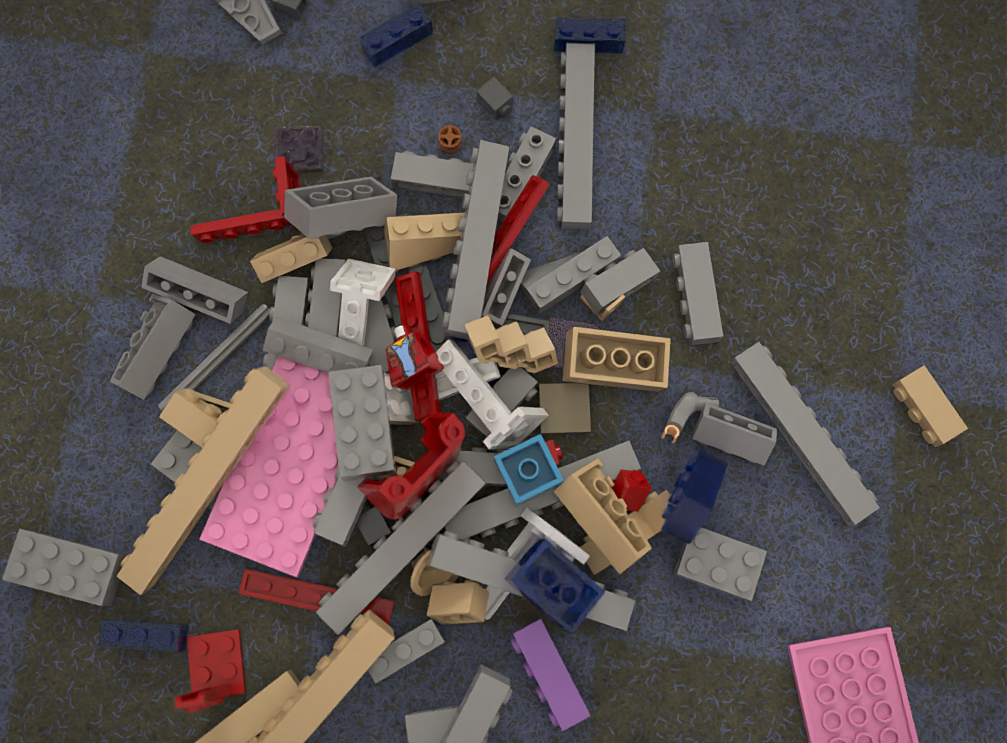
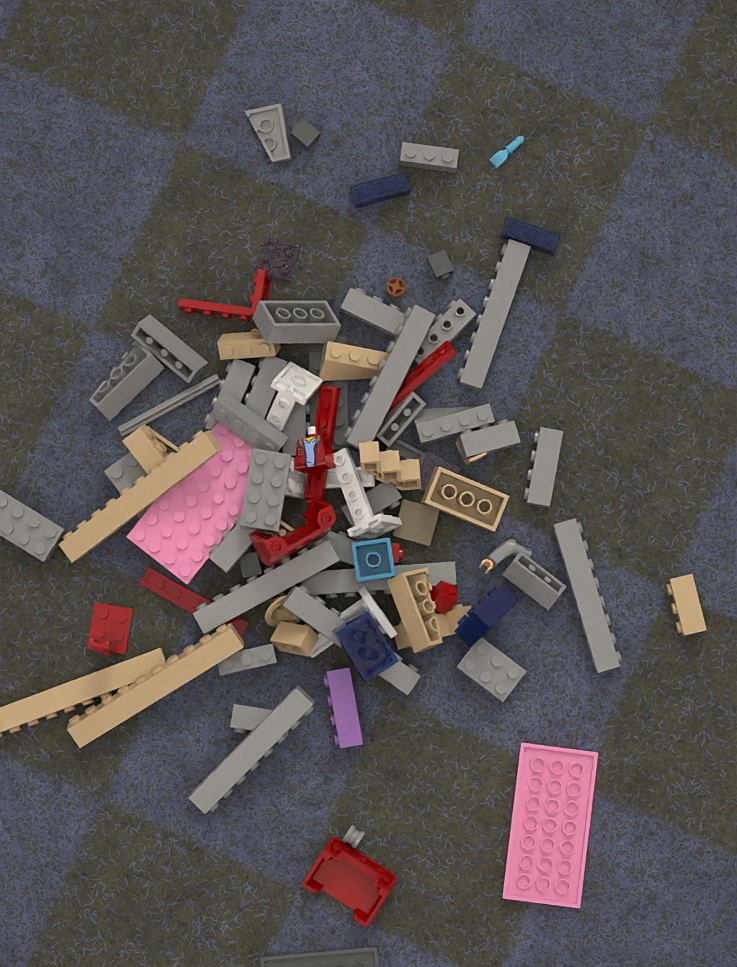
camera: 20 degrees right, 5 degrees up
(143, 635) = (65, 591): clear blue brick -> none

